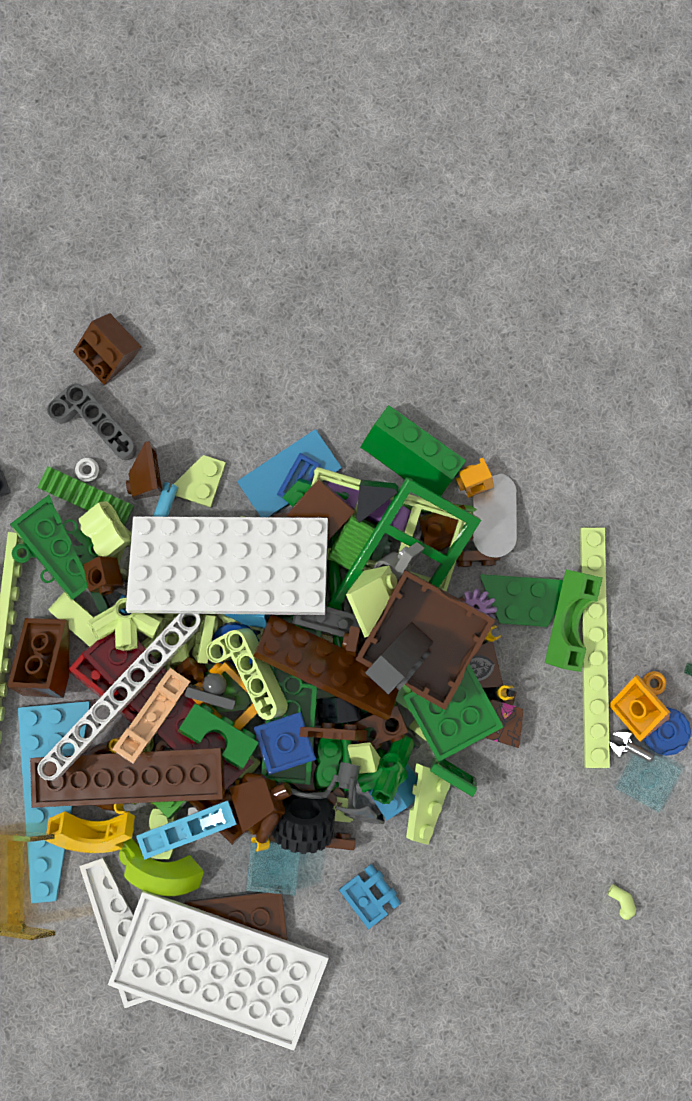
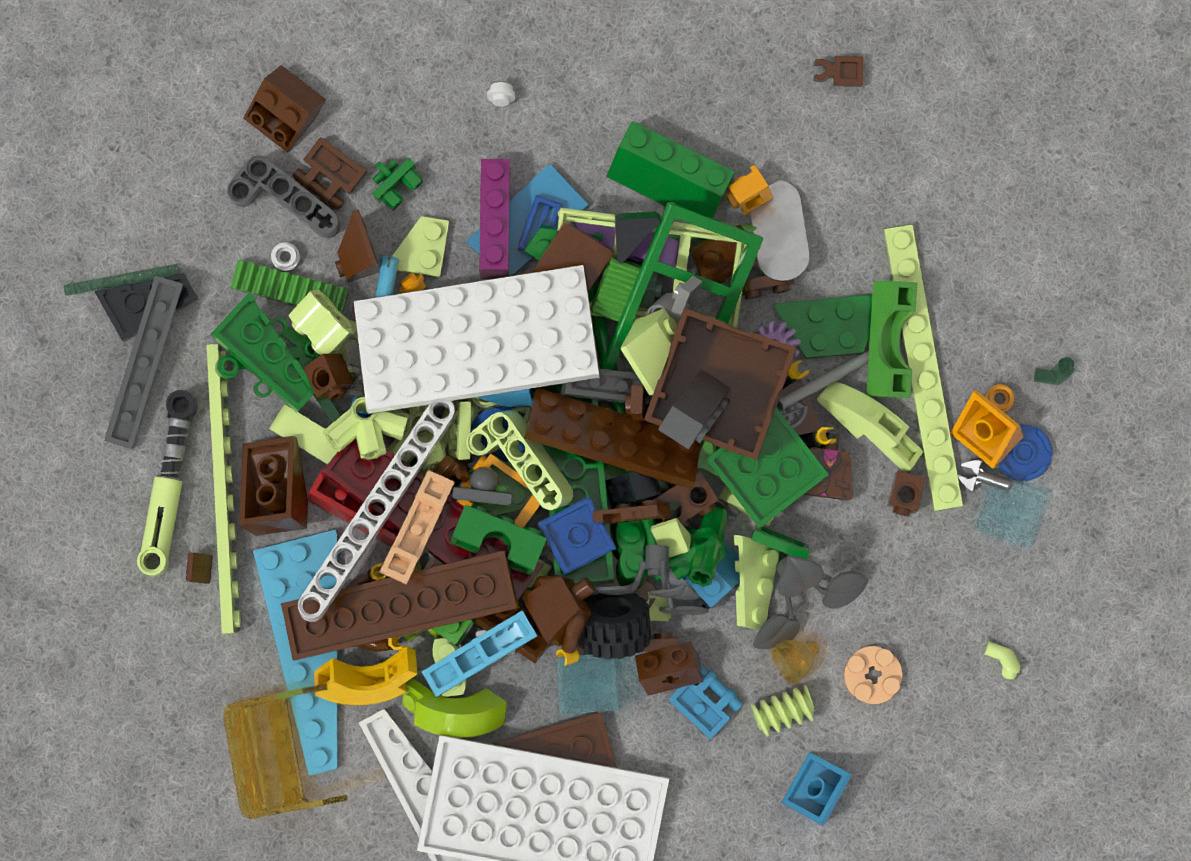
camera: 10 degrees left, 0 degrees up
(141, 404) = (333, 165): none -> reddish brown plate
(186, 509) = (412, 283): none -> light orange plate
(195, 418) = (386, 191): none -> green hips
(261, 467) = (494, 218): none -> magenta arch
(285, 365) = (501, 94): none -> white plate
(344, 865) = (669, 668): none -> reddish brown brick
(433, 916) = (783, 711): none -> yellowish green piece
(450, 873) = (795, 658): none -> clear yellow helmet
(450, 986) = (816, 788): none -> dark azure slope
(464, 811) = (796, 577): none -> dark grey plant
(502, 907) = (887, 683): none -> light nougat plate
(511, 645) = (823, 381): none -> light grey bar
(545, 683) = (868, 417): none -> yellowish green slope
(569, 392) = (845, 71): none -> reddish brown plate
(574, 746) = (915, 484): none -> reddish brown brick

